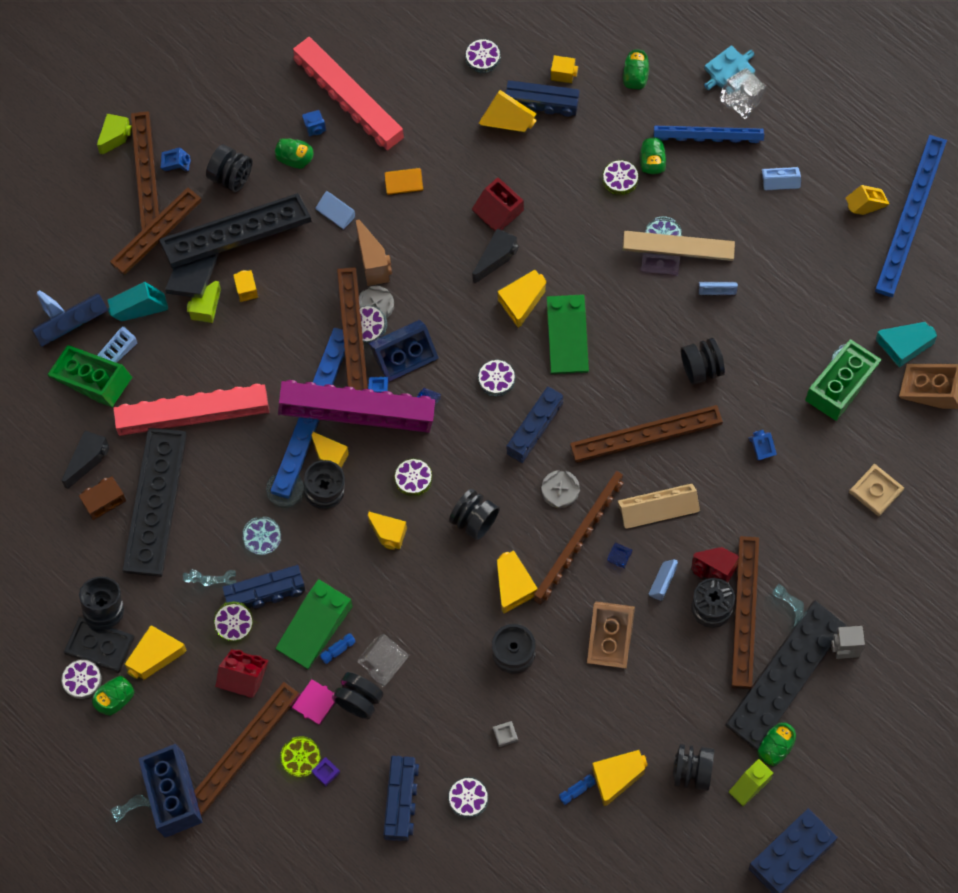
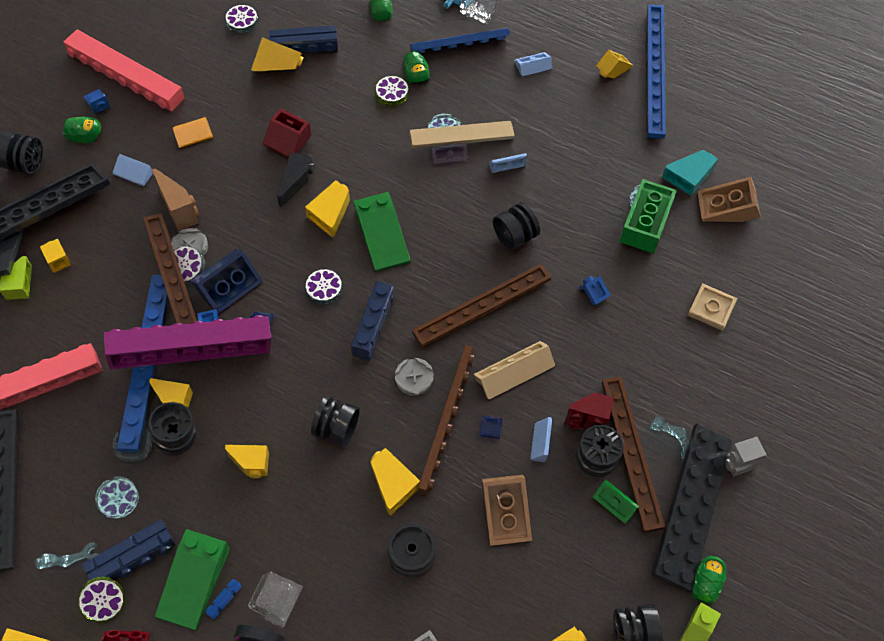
camera: 20 degrees left, 5 degrees down
(413, 477) = (264, 399): tile -> none
(563, 69) = (317, 14): yellow brick -> none
(714, 652) = (615, 501): none -> green plate

